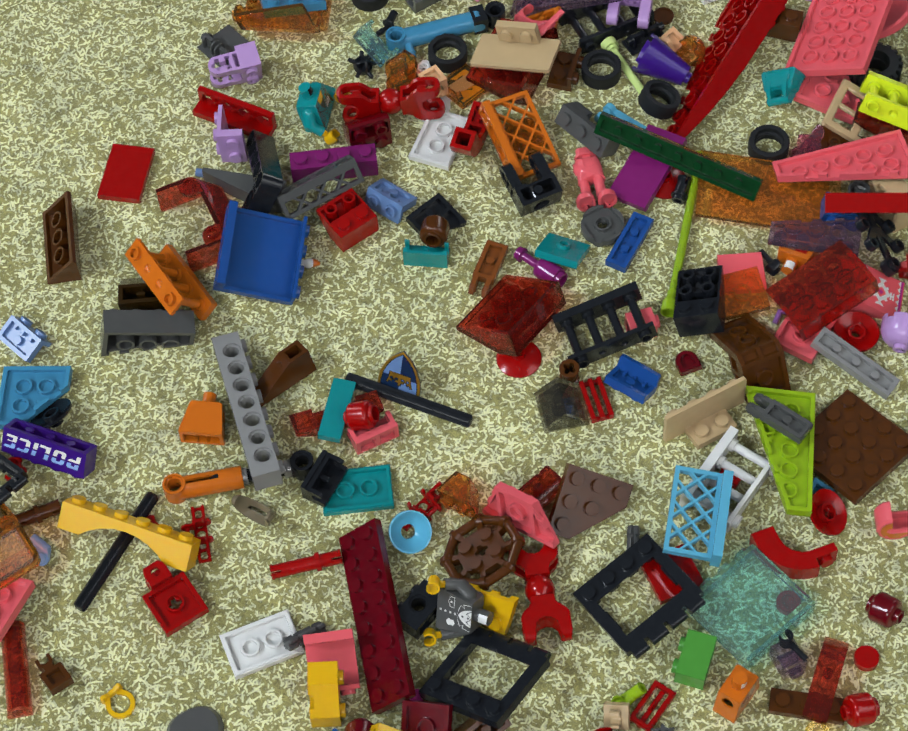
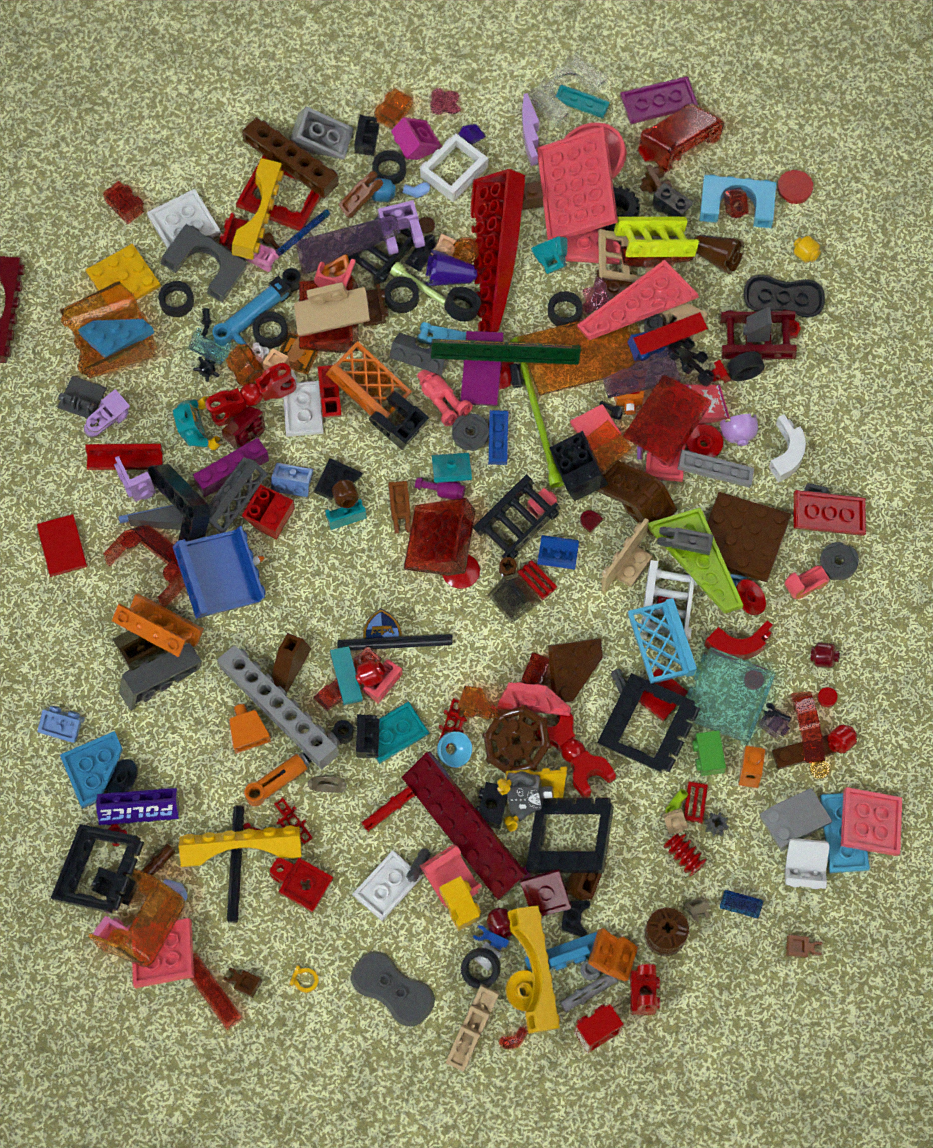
camera: 30 degrees left, 10 degrees up
(61, 241) = (43, 628): reddish brown slope -> none

